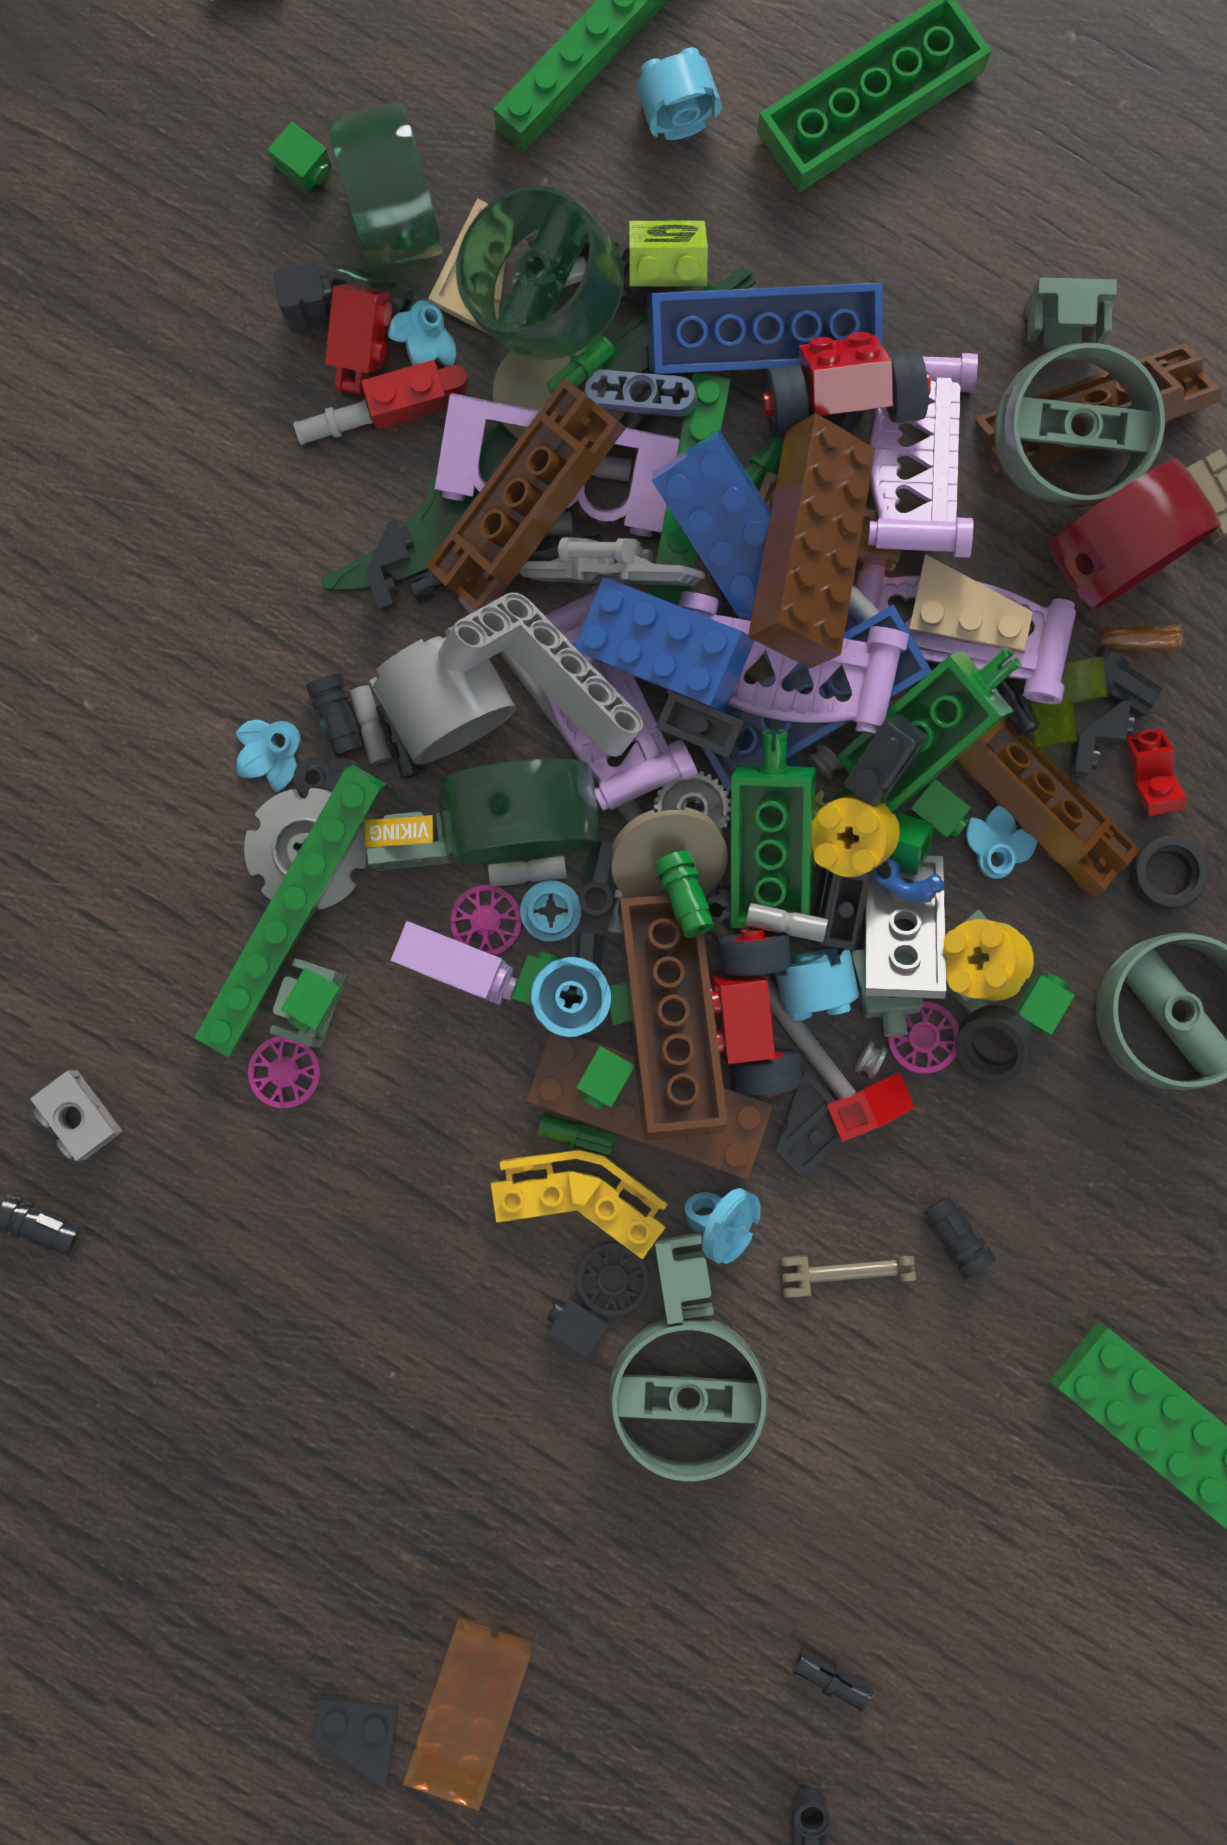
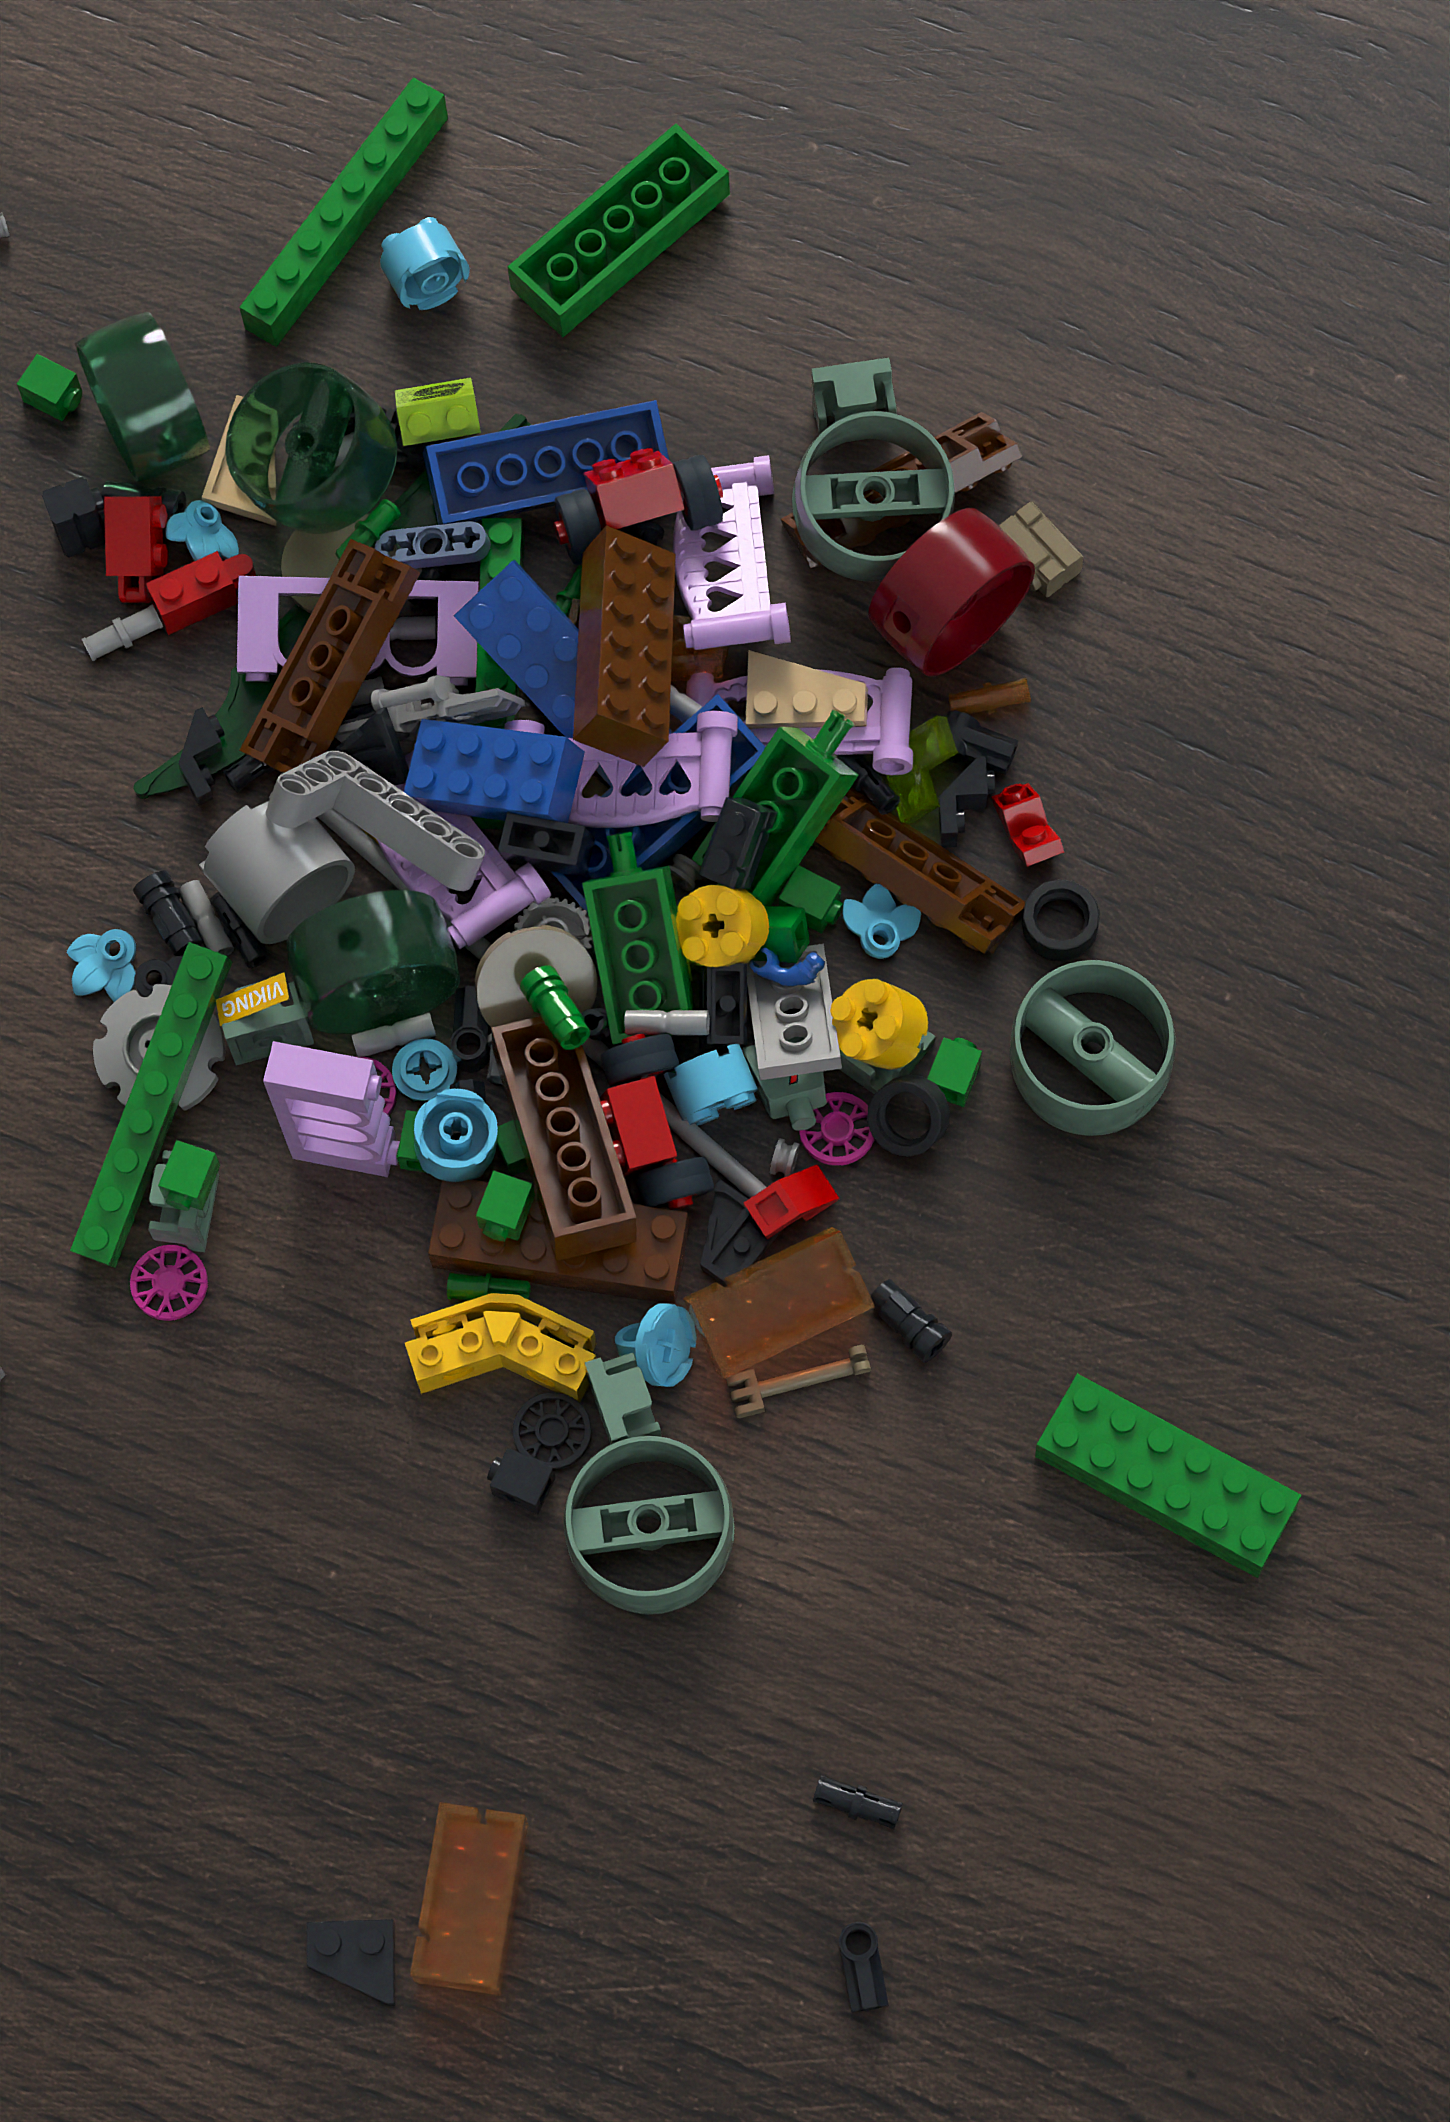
camera: 10 degrees left, 15 degrees down
(554, 594) = (378, 748): none -> black wing
(844, 1206) = (778, 1302): none -> clear orange piece

